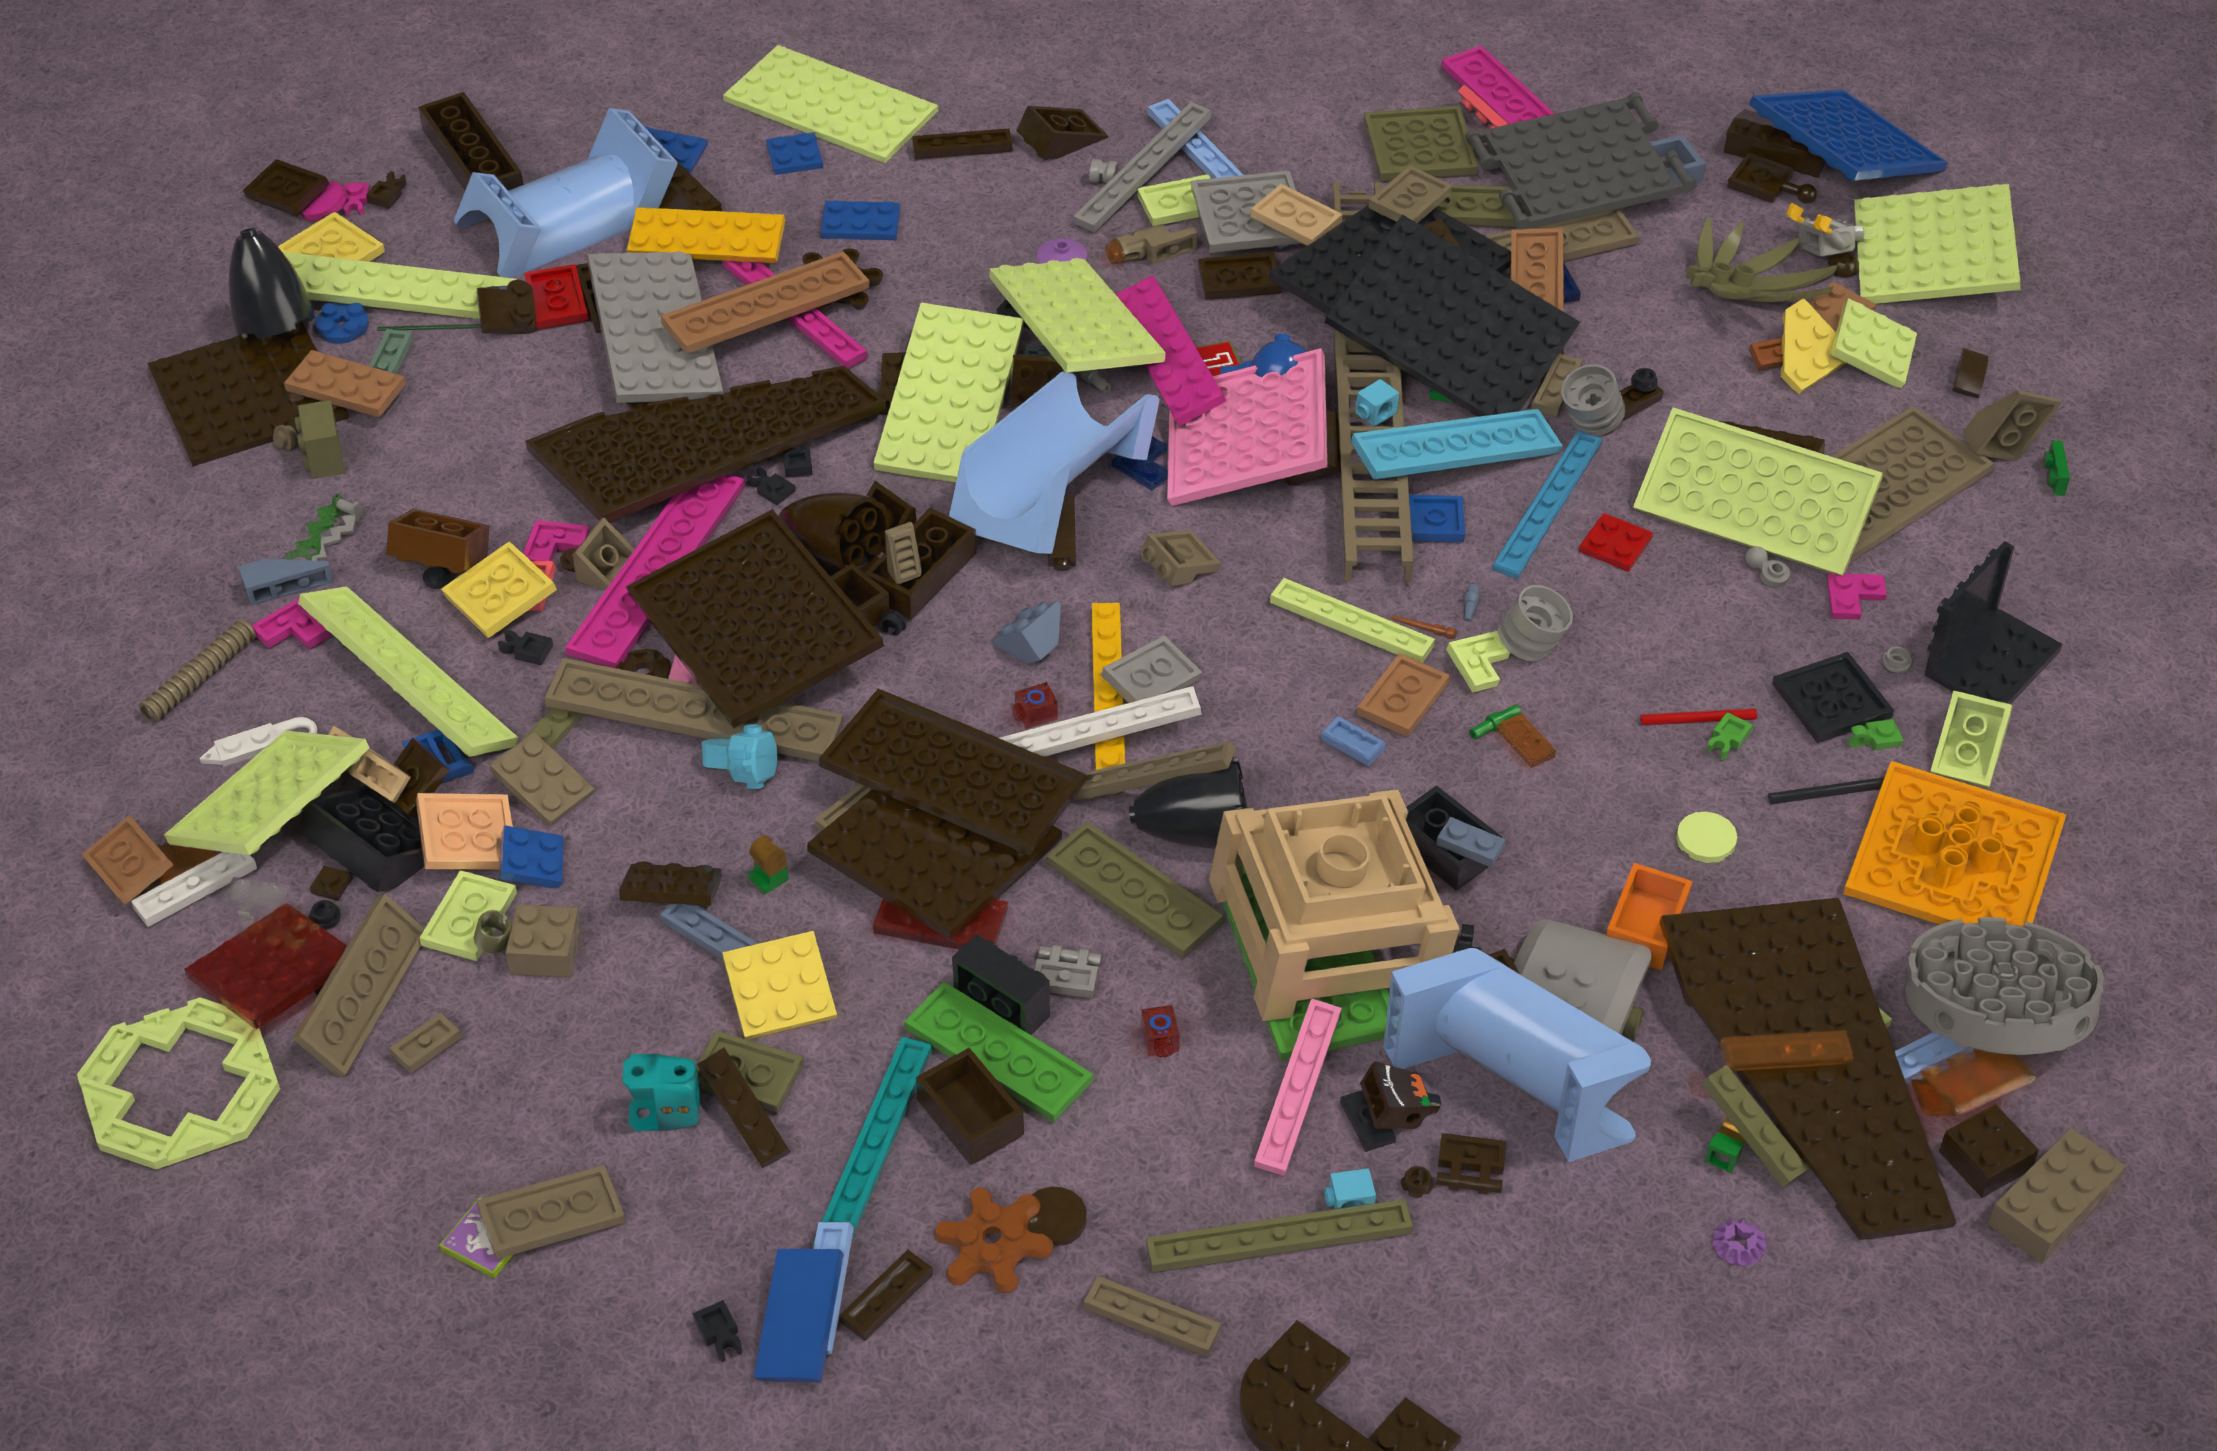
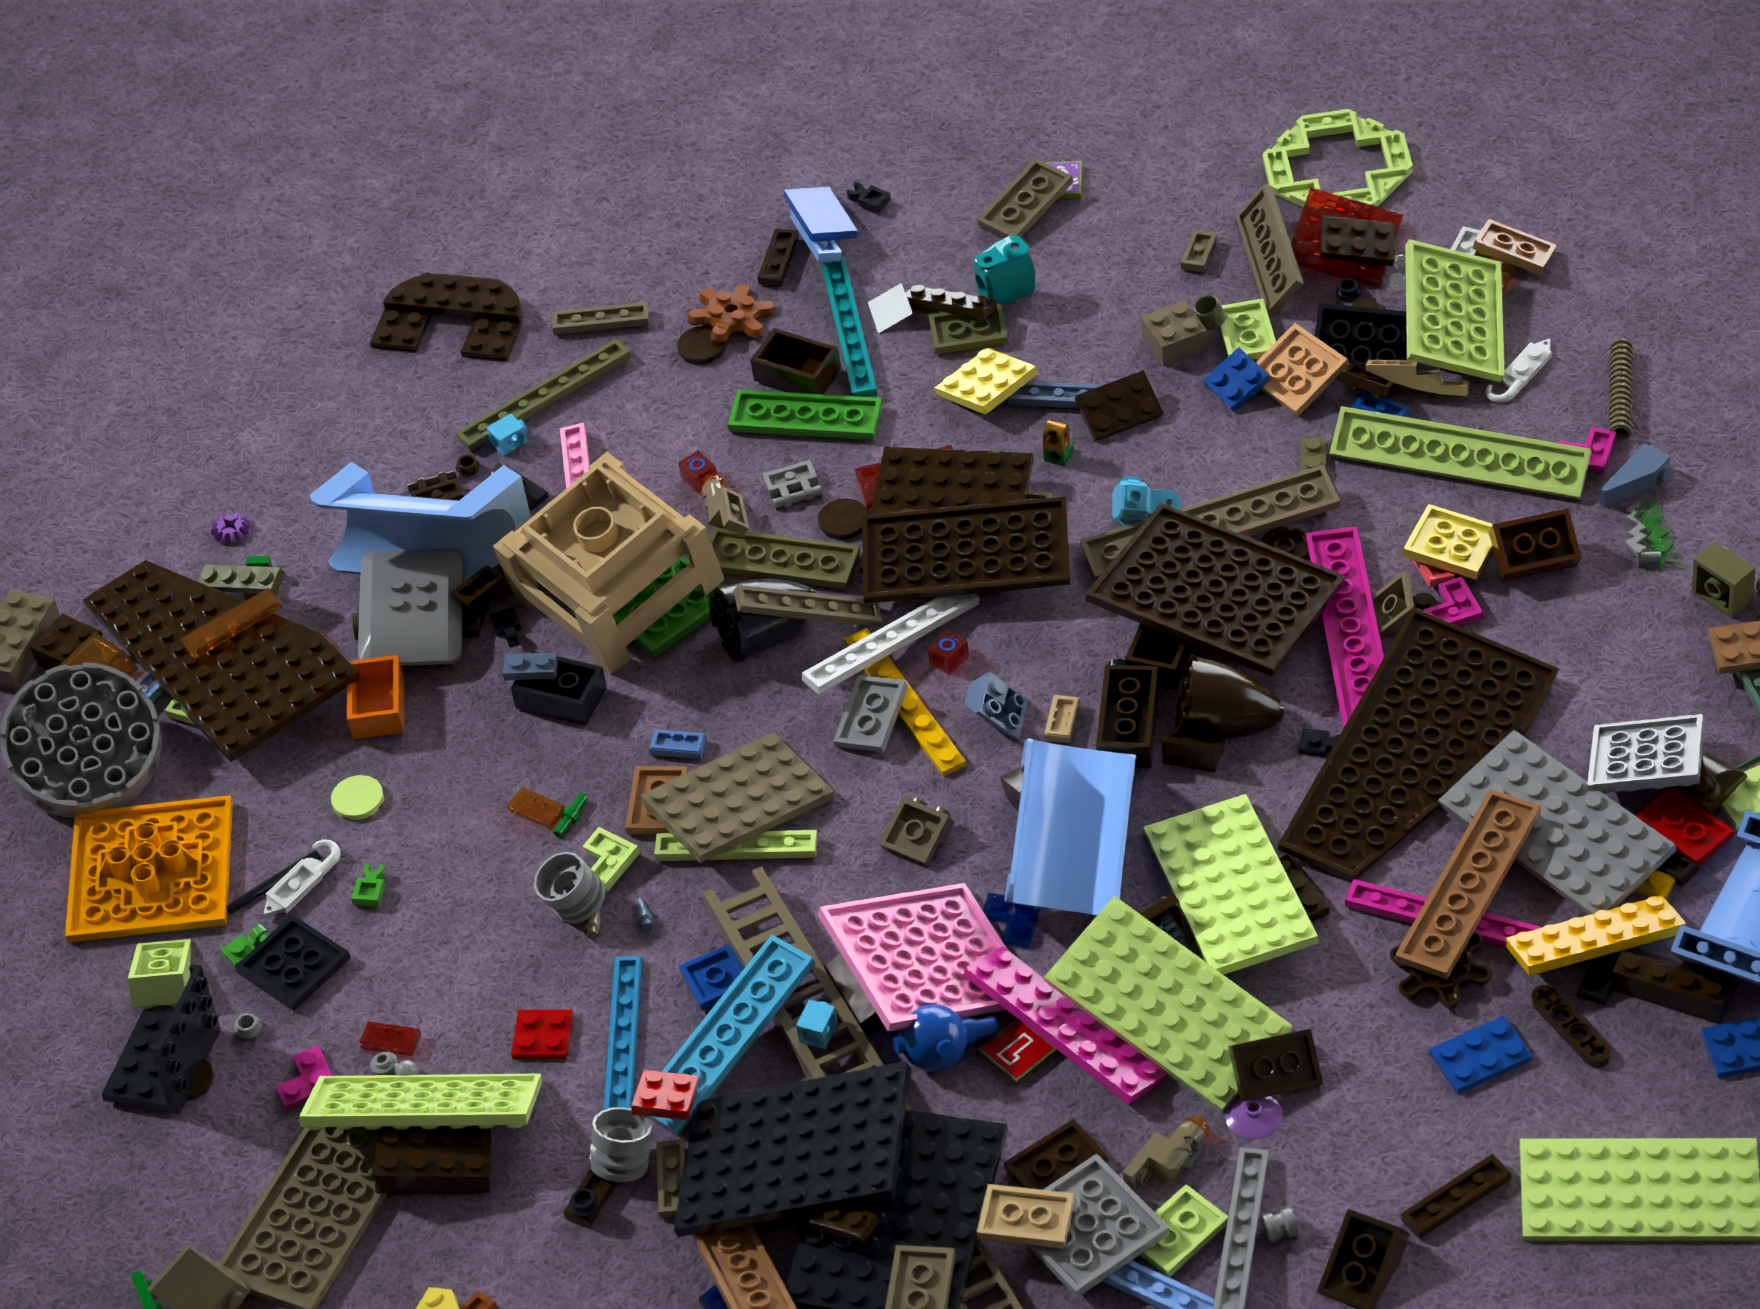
camera: 160 degrees right, 0 degrees up
(270, 935) = (1357, 241): none -> dark brown plate
(529, 648) = (1388, 520): black plate -> none
(534, 333) = (1646, 754): none -> light grey plate
(541, 779) = (1280, 431): dark tan plate -> none
(782, 195) = (1573, 1025): none -> dark brown beam
(794, 153) = (1618, 1104): blue plate -> none
(797, 462) = (1310, 767): black plate -> none
(809, 1146) = (890, 308): none -> white sticker
(903, 555) = (1126, 668): dark tan slope -> none
(976, 602) = (1062, 719): none -> tan plate
(1002, 983) = (824, 435): black brick -> none
(1024, 253) = (1275, 1065): none -> dark brown plate
(1039, 908) = (842, 518): none -> dark brown tile
(1160, 960) = (724, 506): none -> dark tan plate
(1327, 652) = (736, 797): none -> dark tan plate
(1437, 629) = (661, 878): dark orange piece -> none
(1537, 408) = (665, 1095): none -> plate
(1696, 716) = (403, 899): red piece -> none
(1761, 591) = (390, 1038): none -> clear red plate
(1798, 770) = (300, 880): none -> white plate

